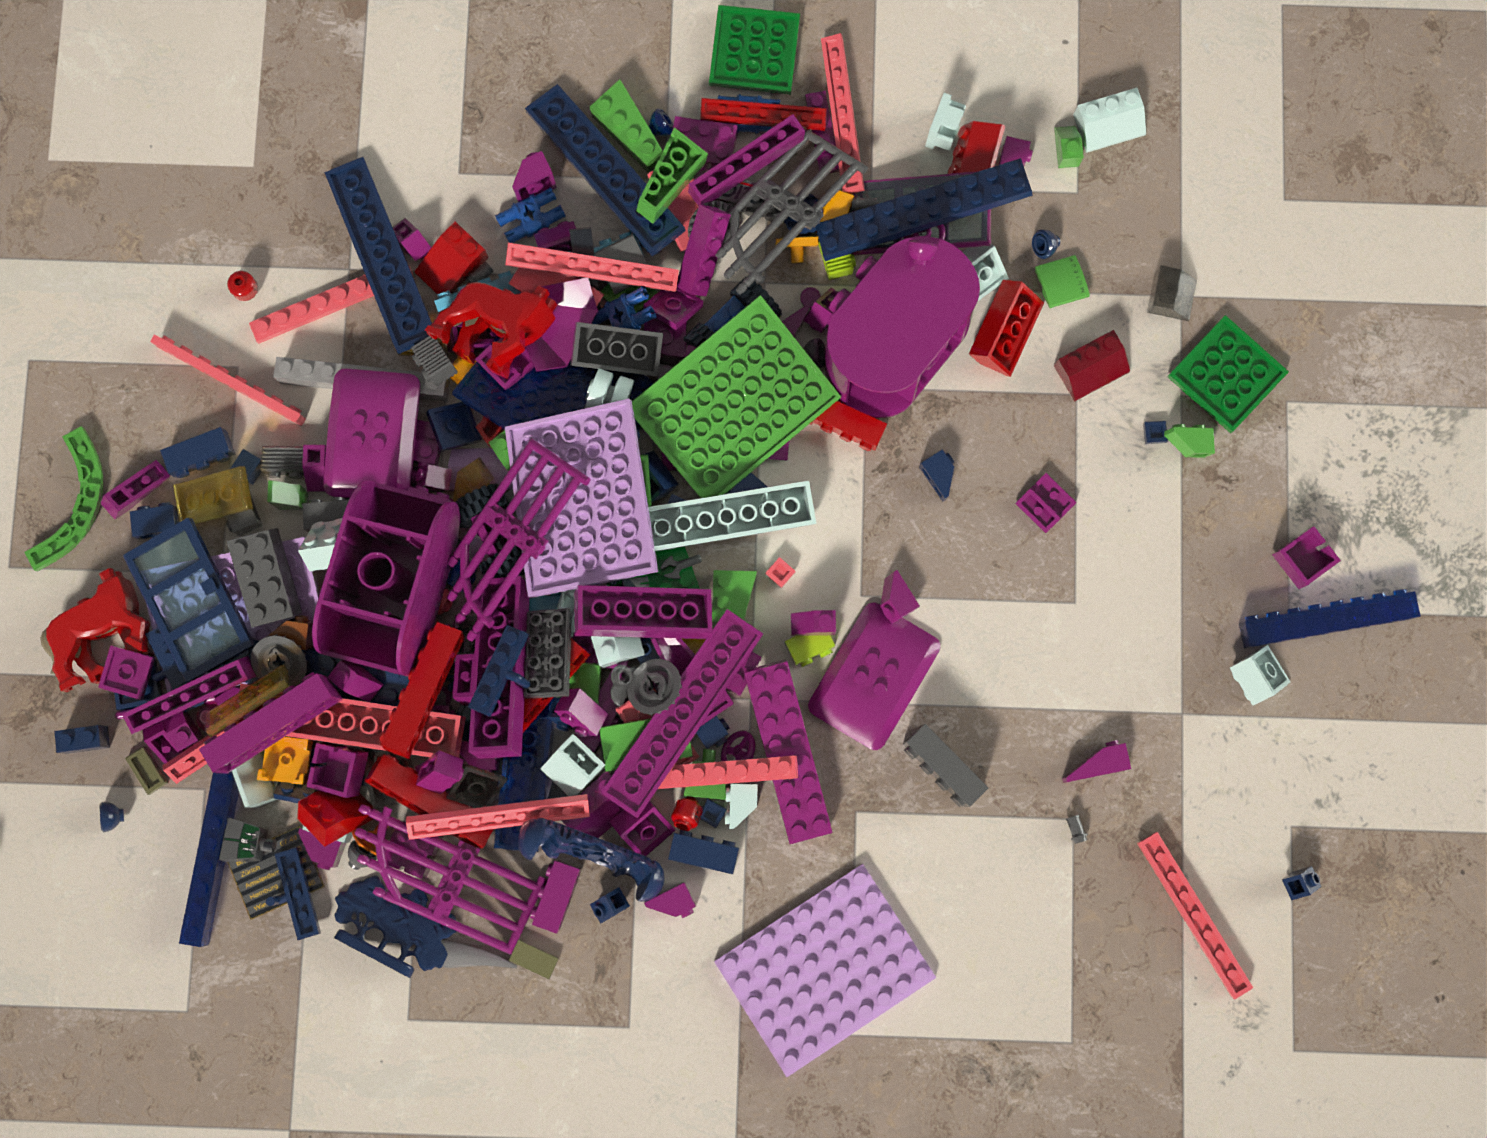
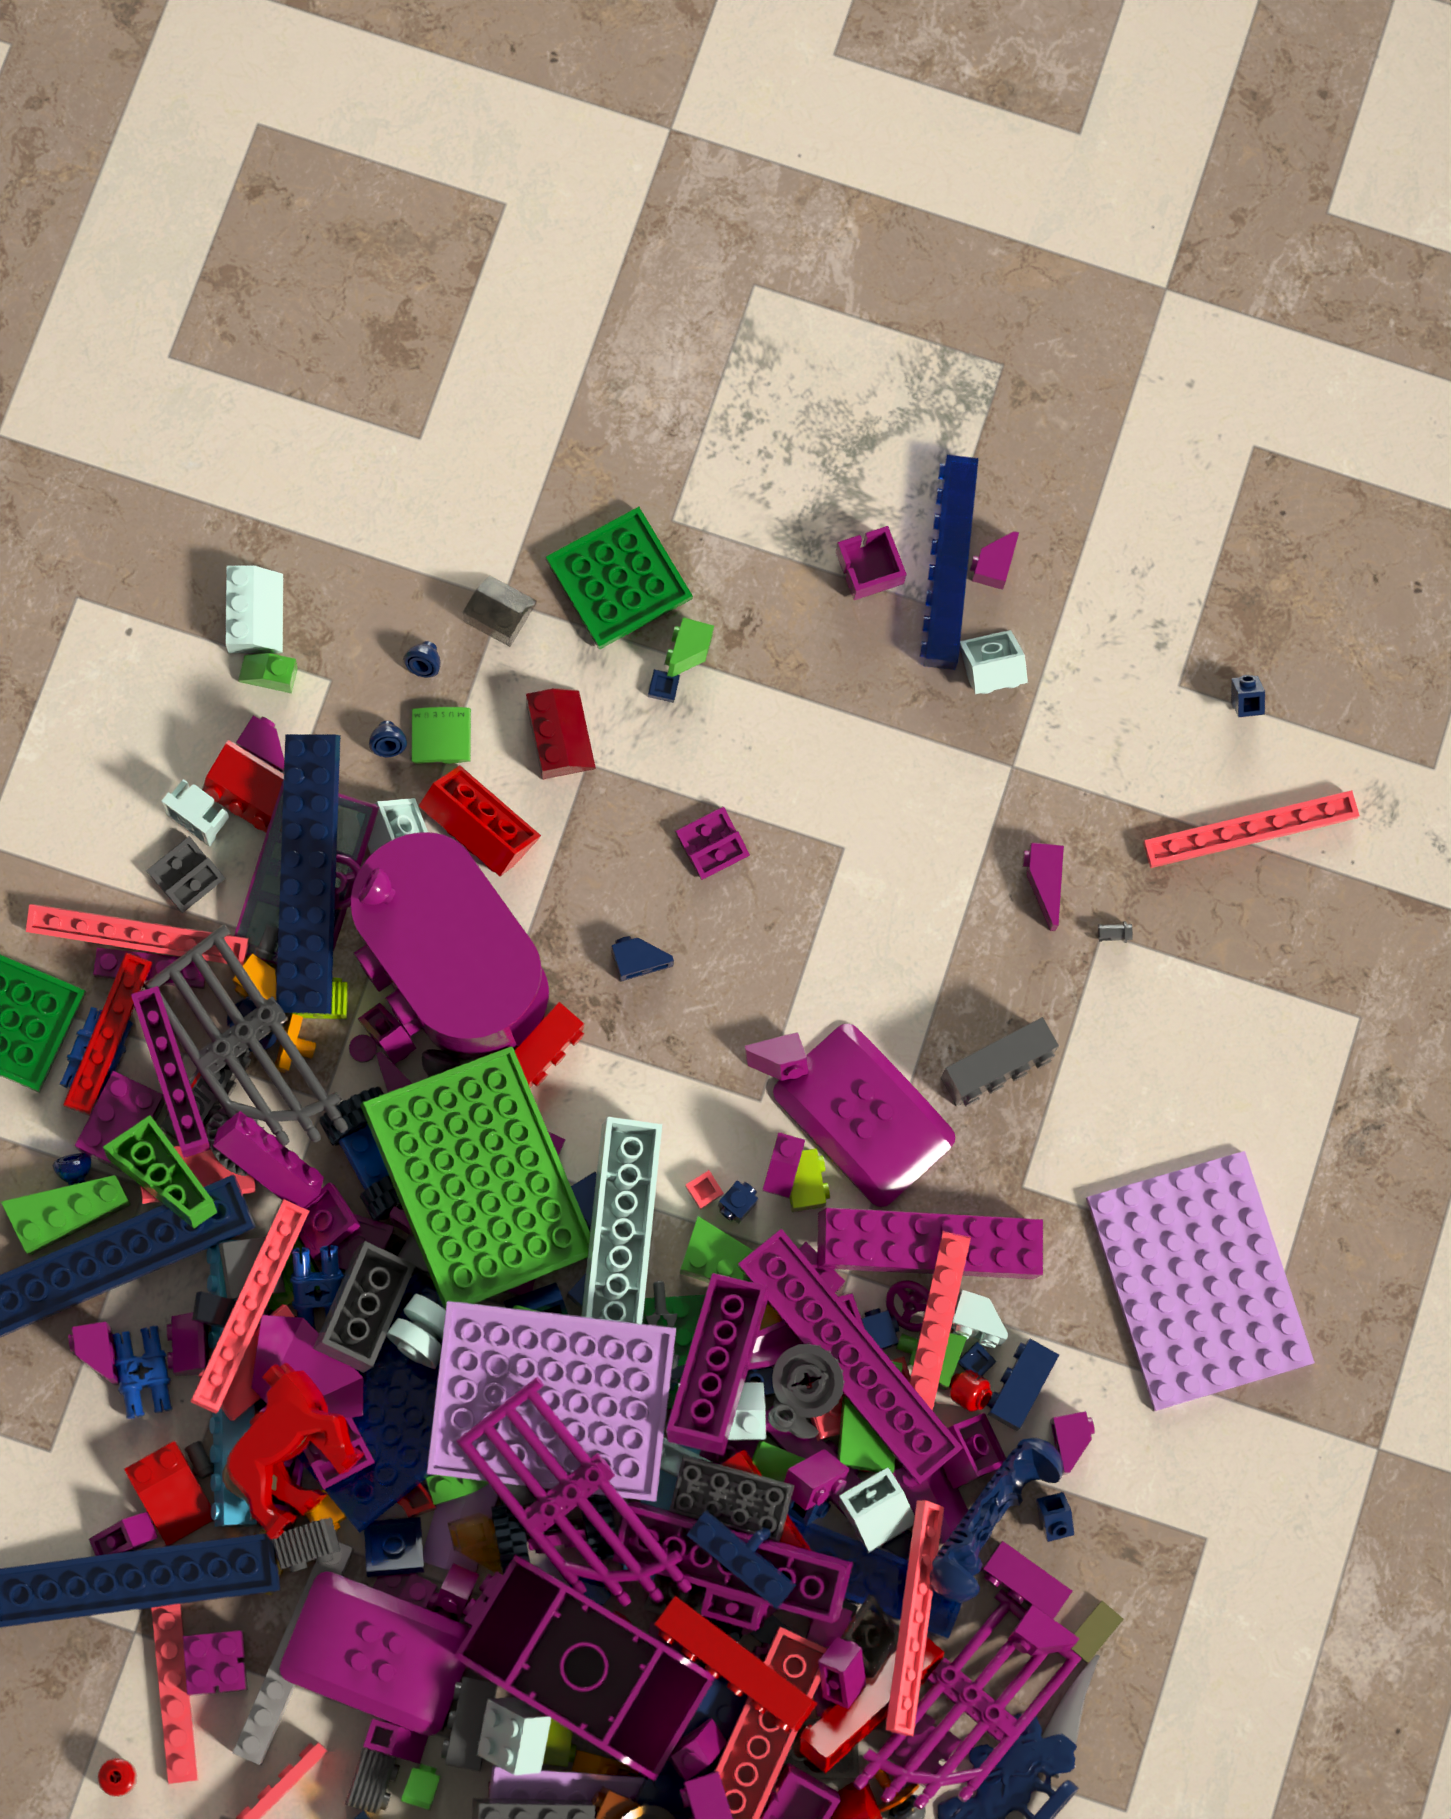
camera: 85 degrees left, 5 degrees down
(338, 324) = (213, 1662): none -> magenta piece
(517, 917) = (1041, 1634): none -> magenta slope
(778, 599) = (738, 1201): none -> dark blue brick
(898, 135) = (185, 874): none -> dark grey slope
(1115, 250) = (423, 660): none -> dark blue brick
(1341, 653) = (994, 561): none -> magenta slope

